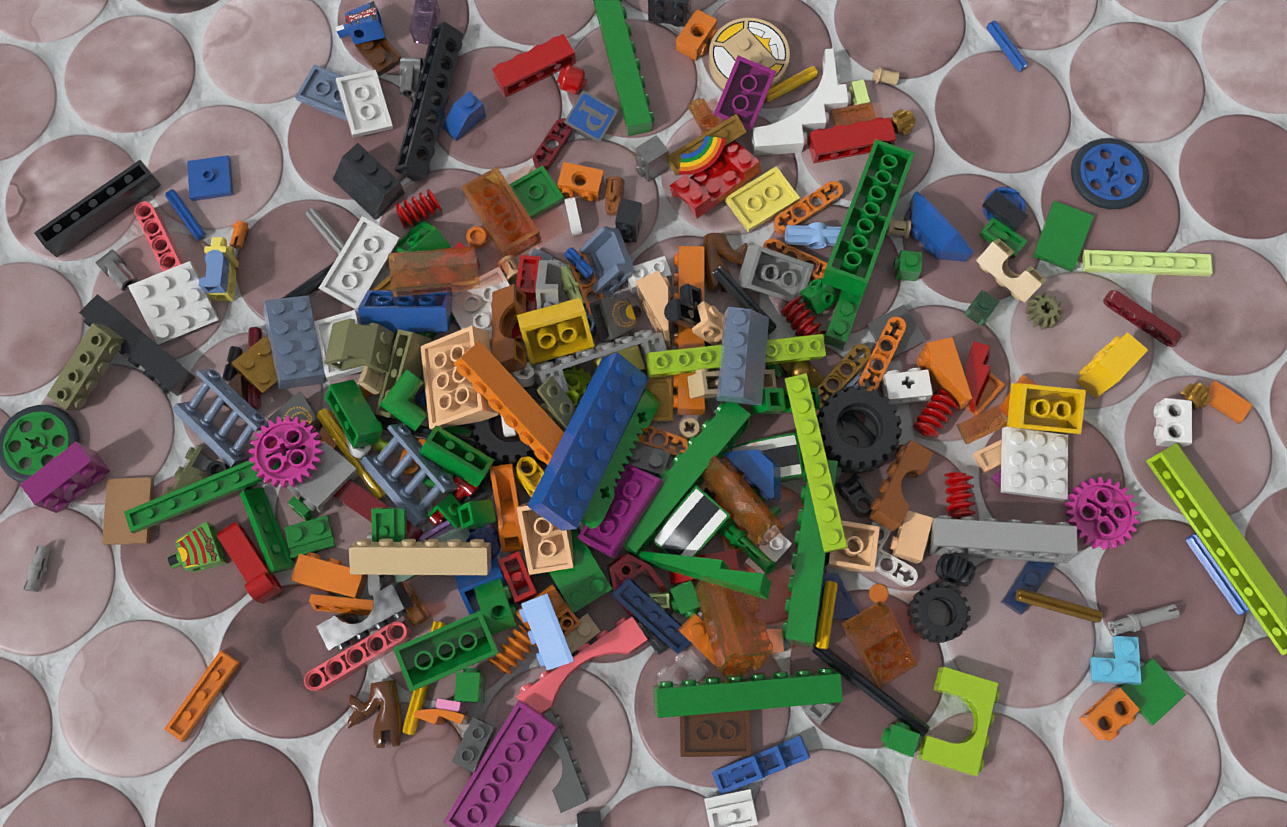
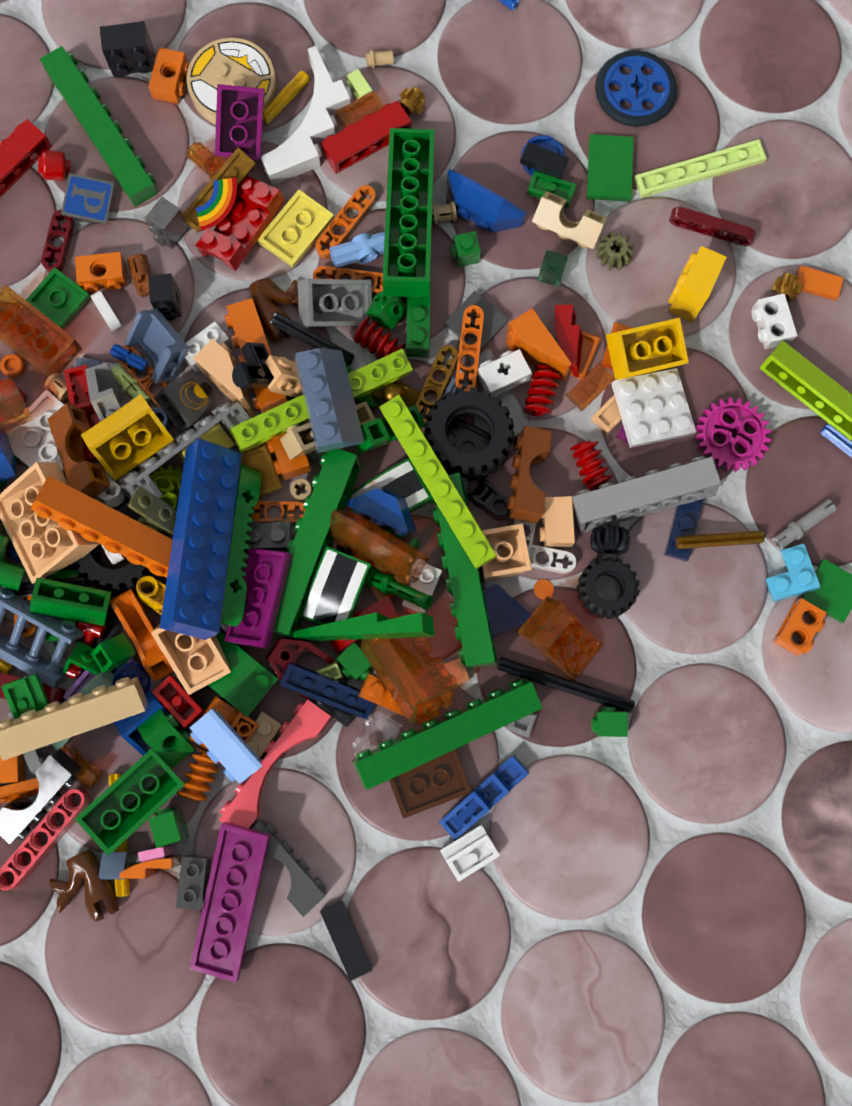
camera: 25 degrees left, 5 degrees up
(410, 702) = (113, 865): none -> sand blue tile
(826, 615) = (499, 628): yellow axle -> none
(980, 698) = (673, 655): lime arch -> none

